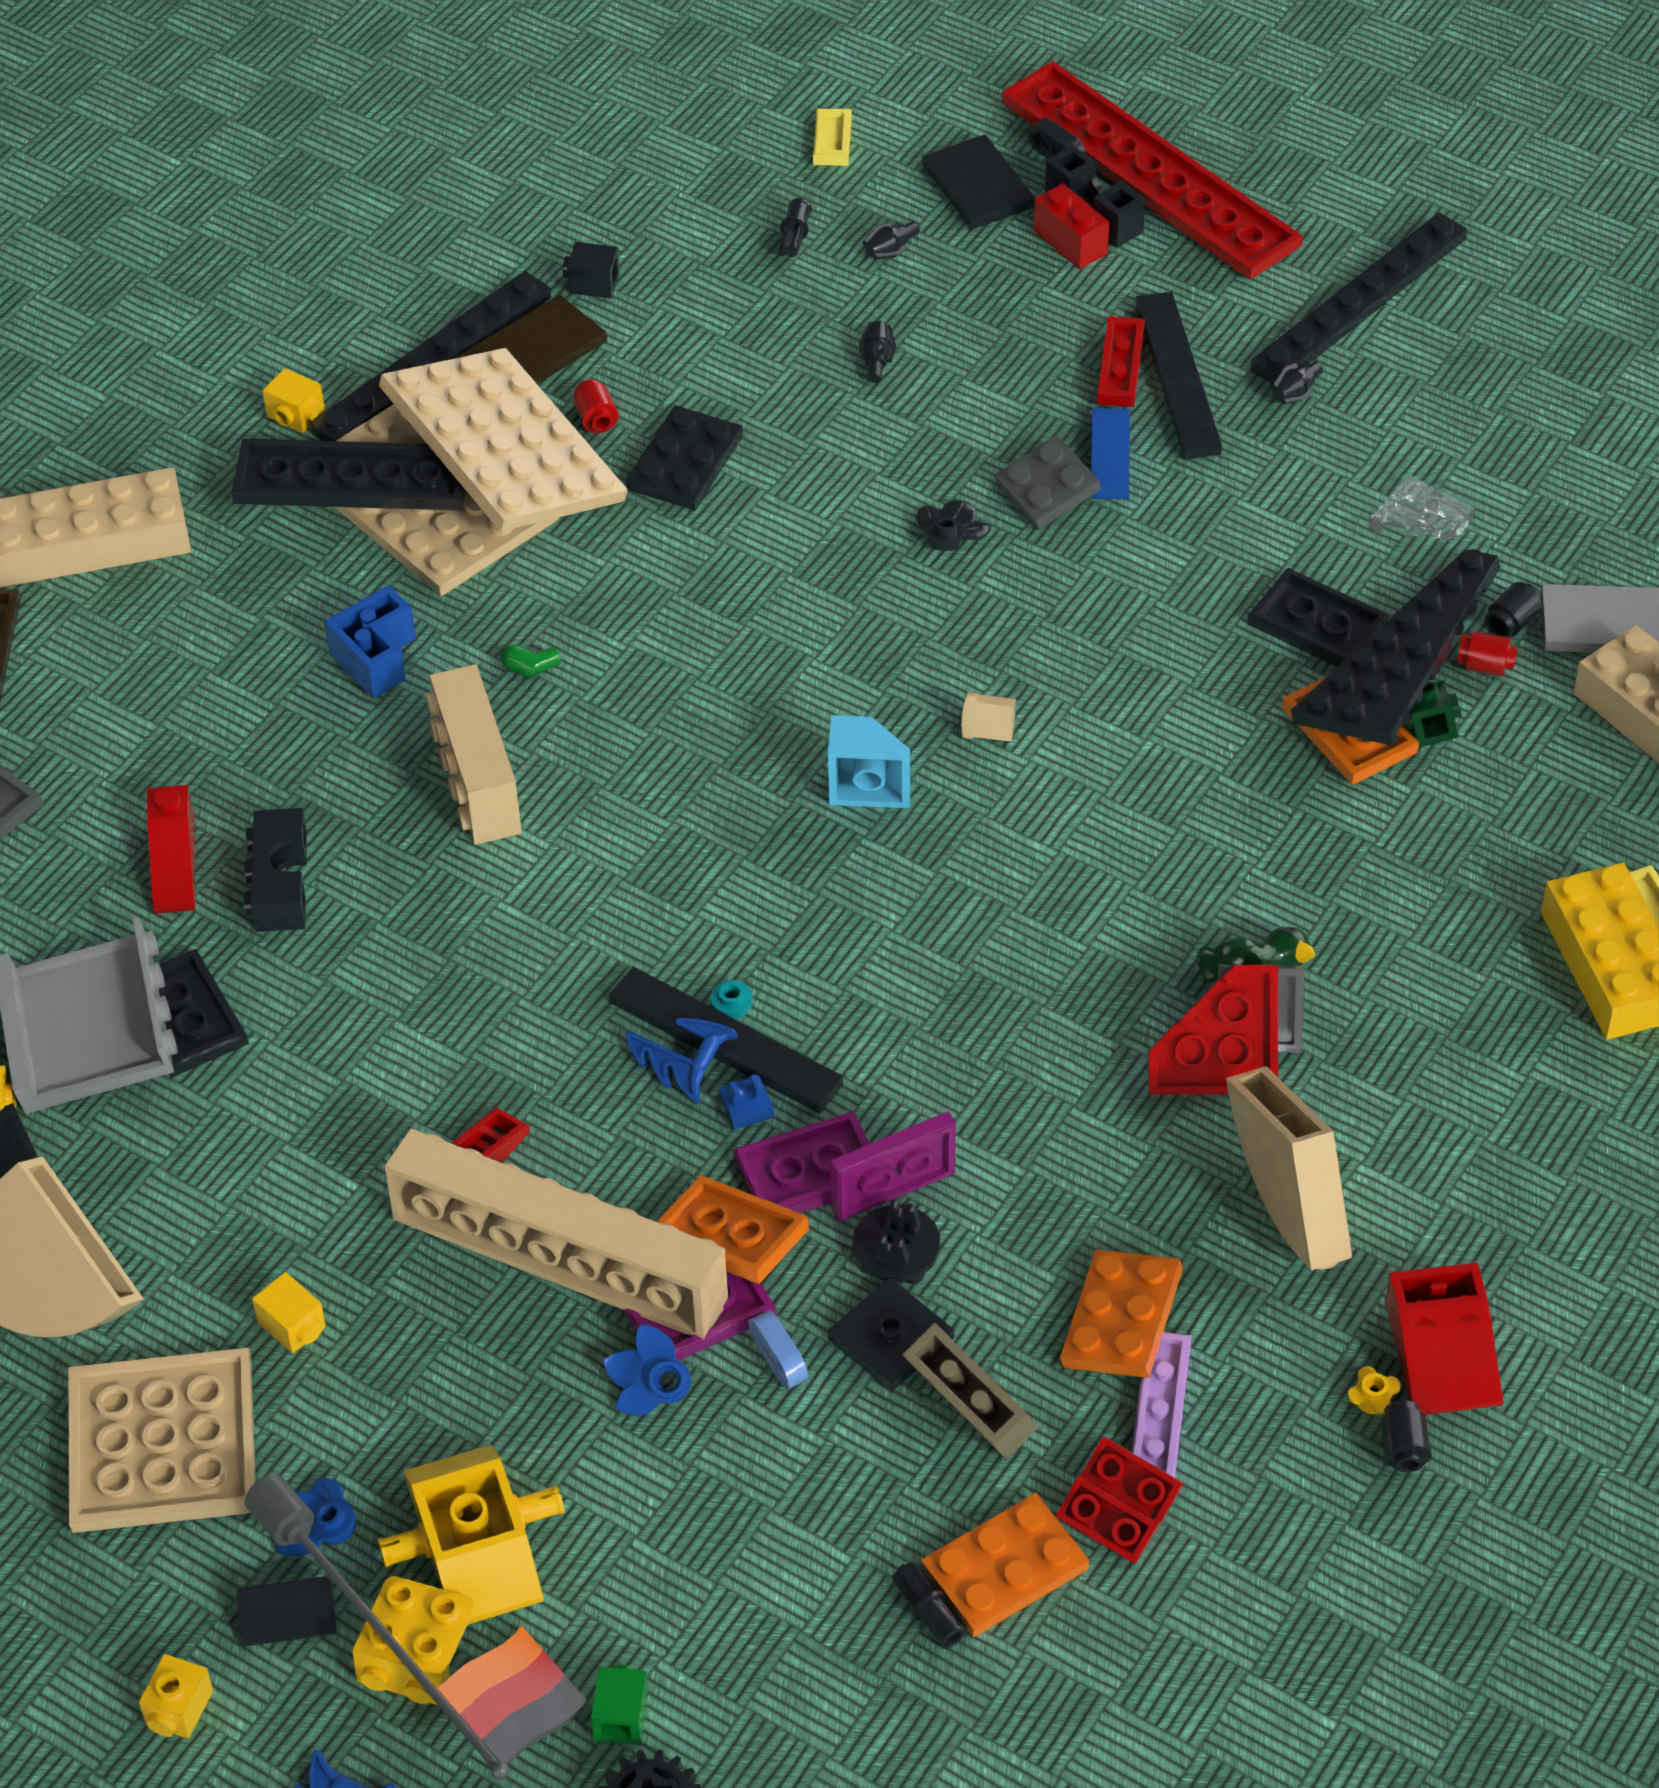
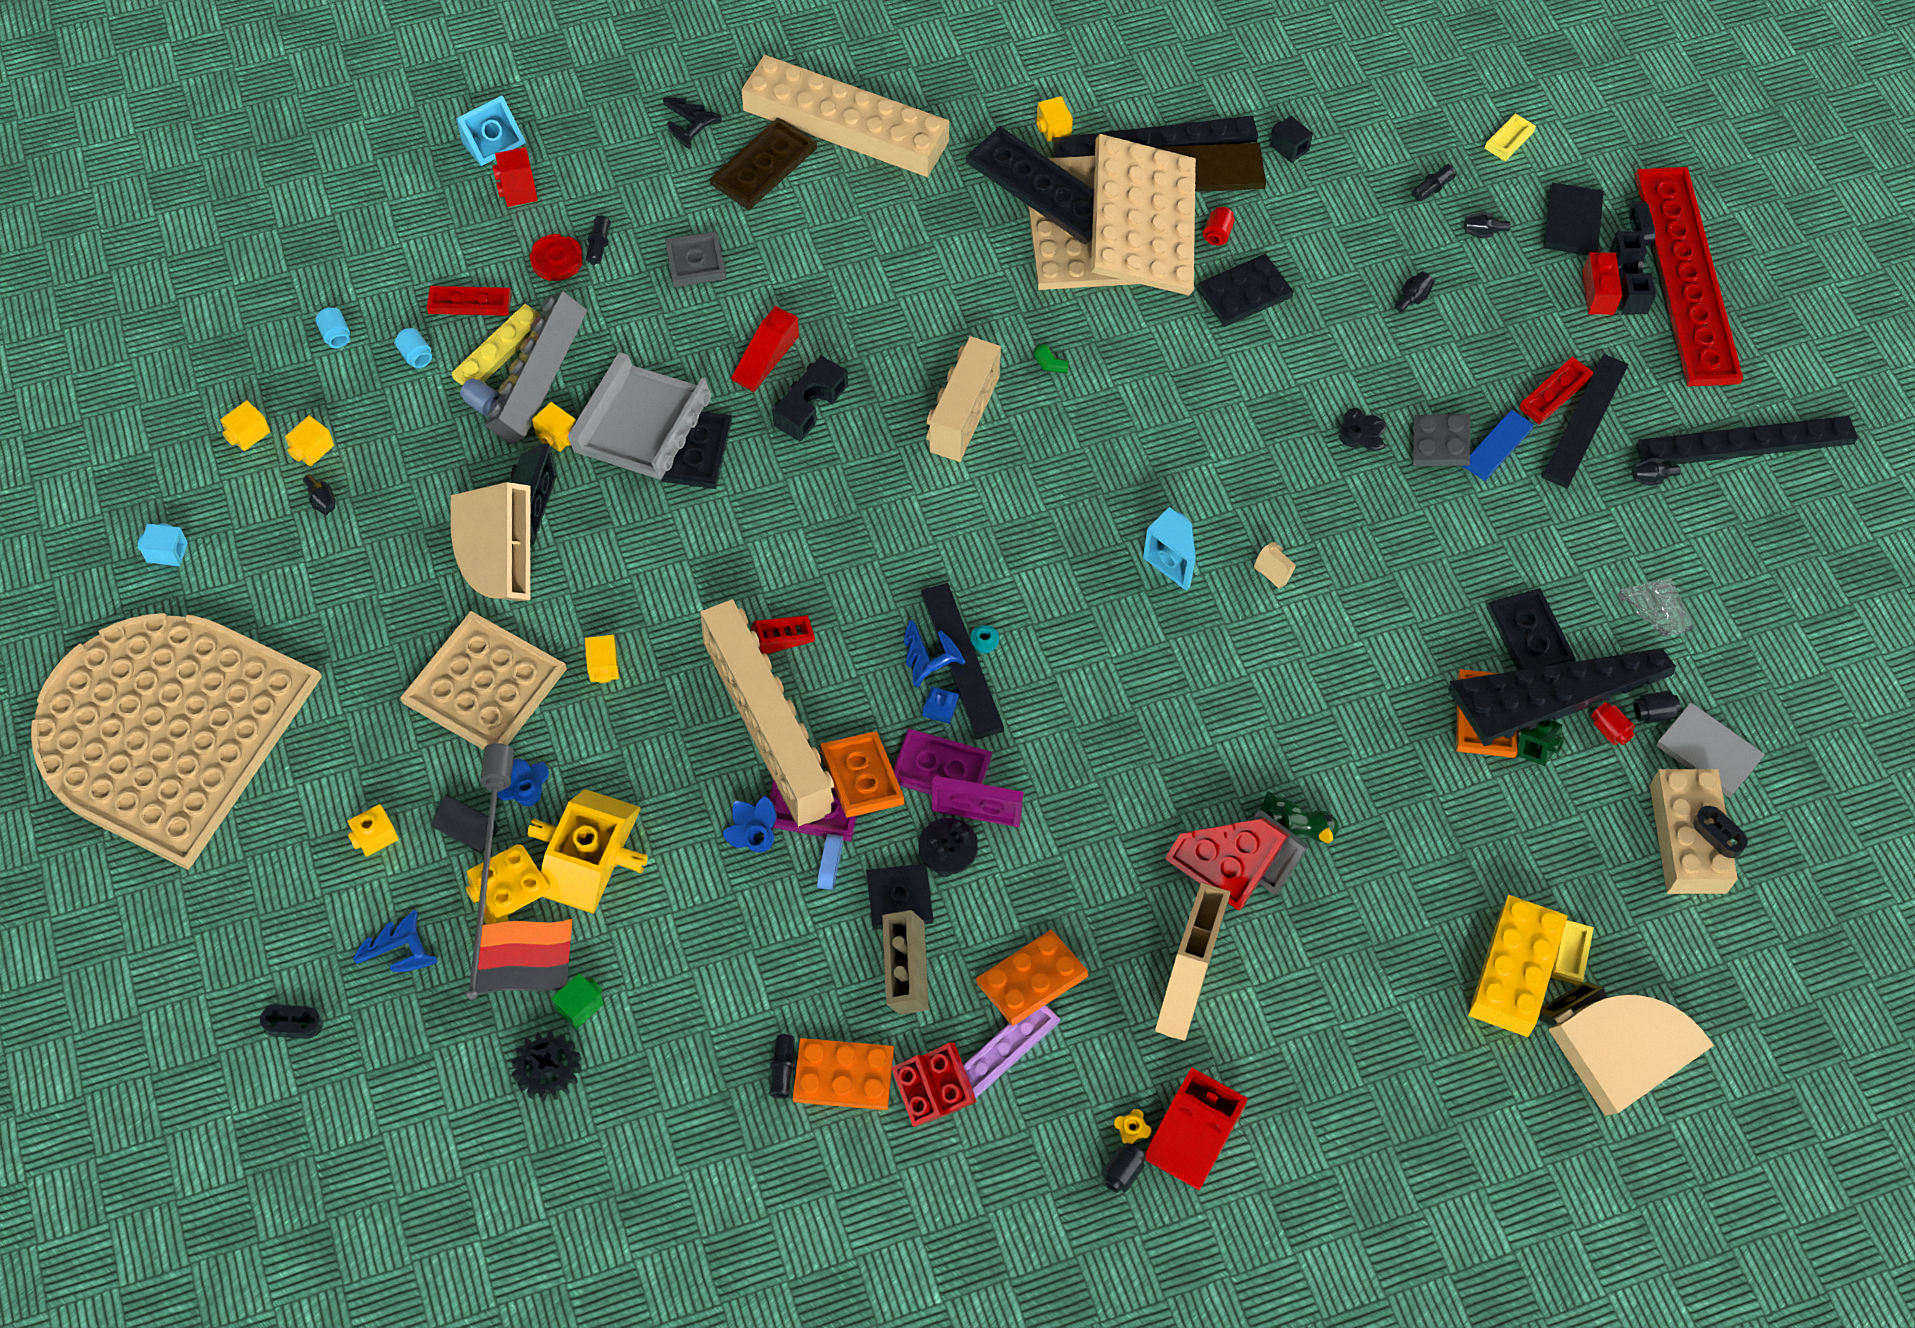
camera: 35 degrees right, 10 degrees up
(370, 638) = (969, 289): blue brick -> none

